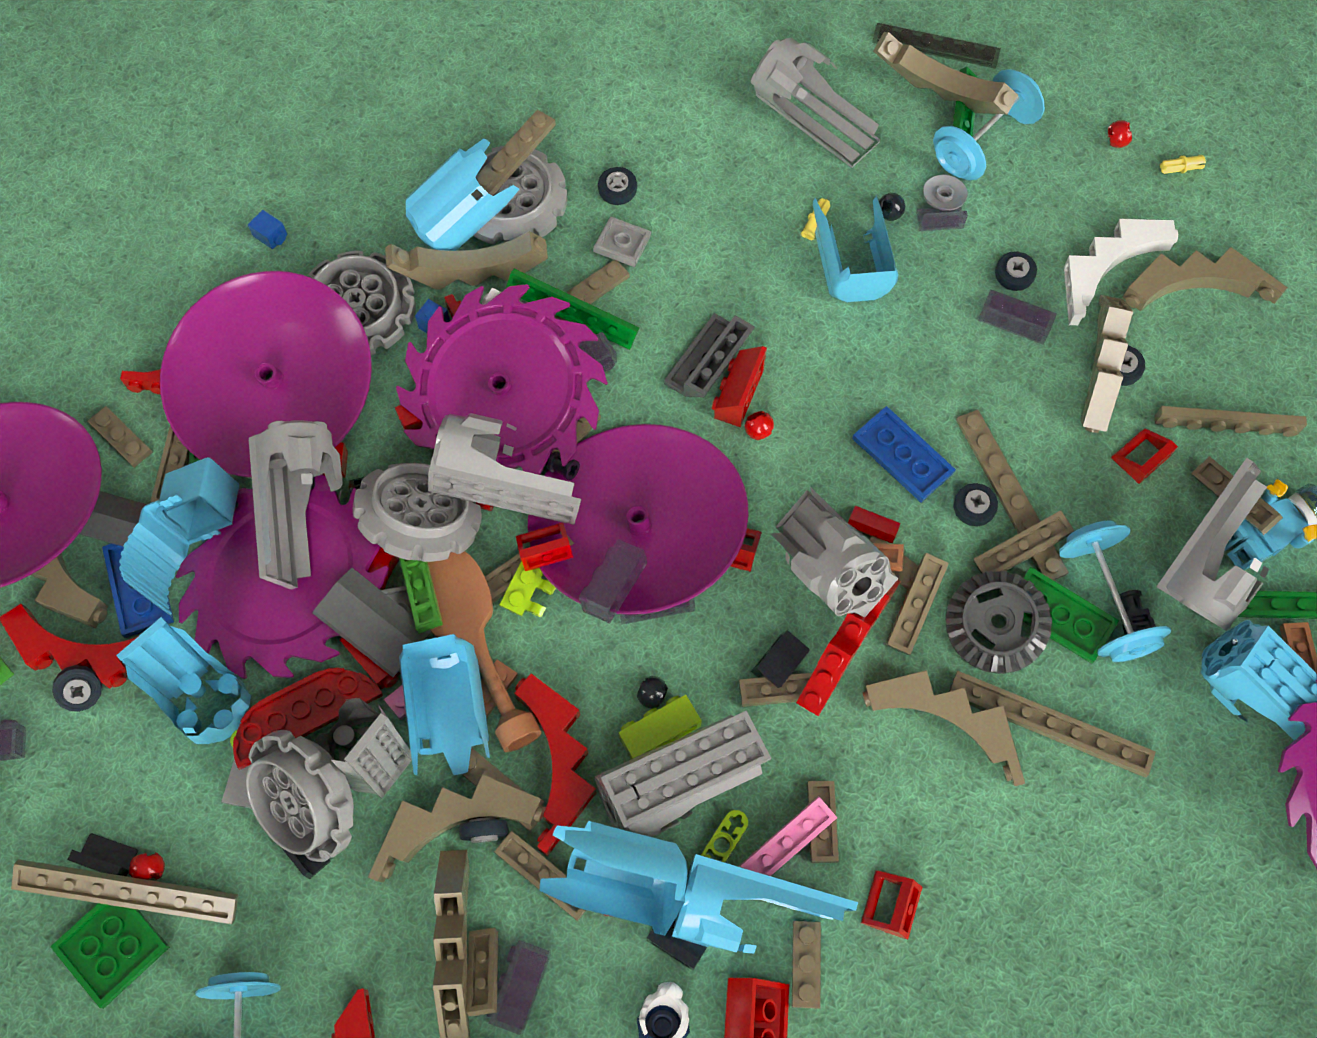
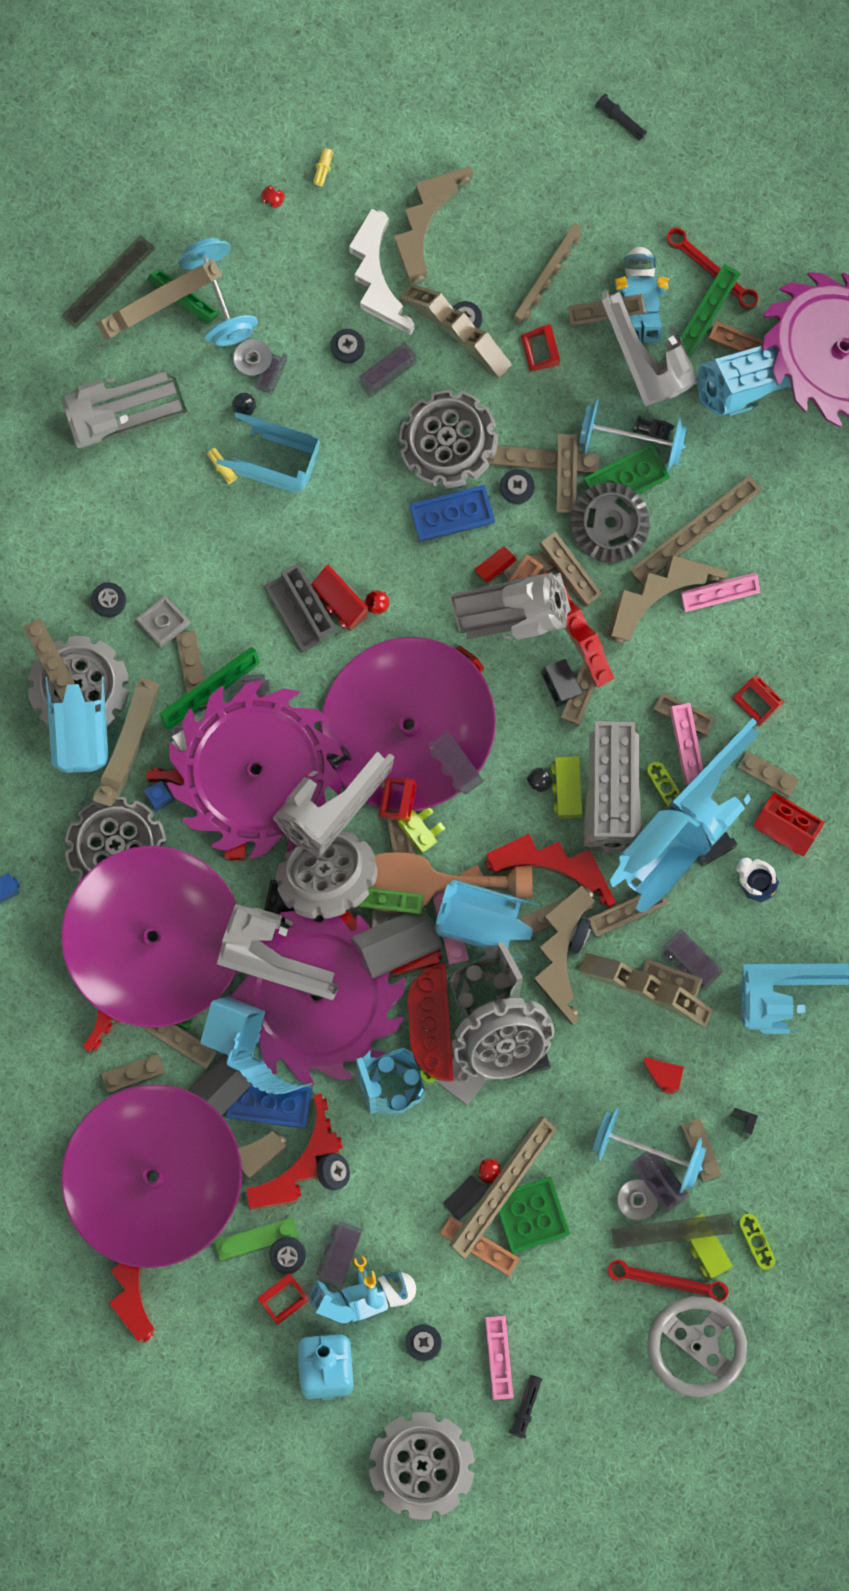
camera: 65 degrees left, 10 degrees up
(45, 913) = (484, 1249): none -> nougat plate
(981, 405) = (479, 442): none -> light grey piece
(996, 789) = (720, 592): none -> bright pink plate

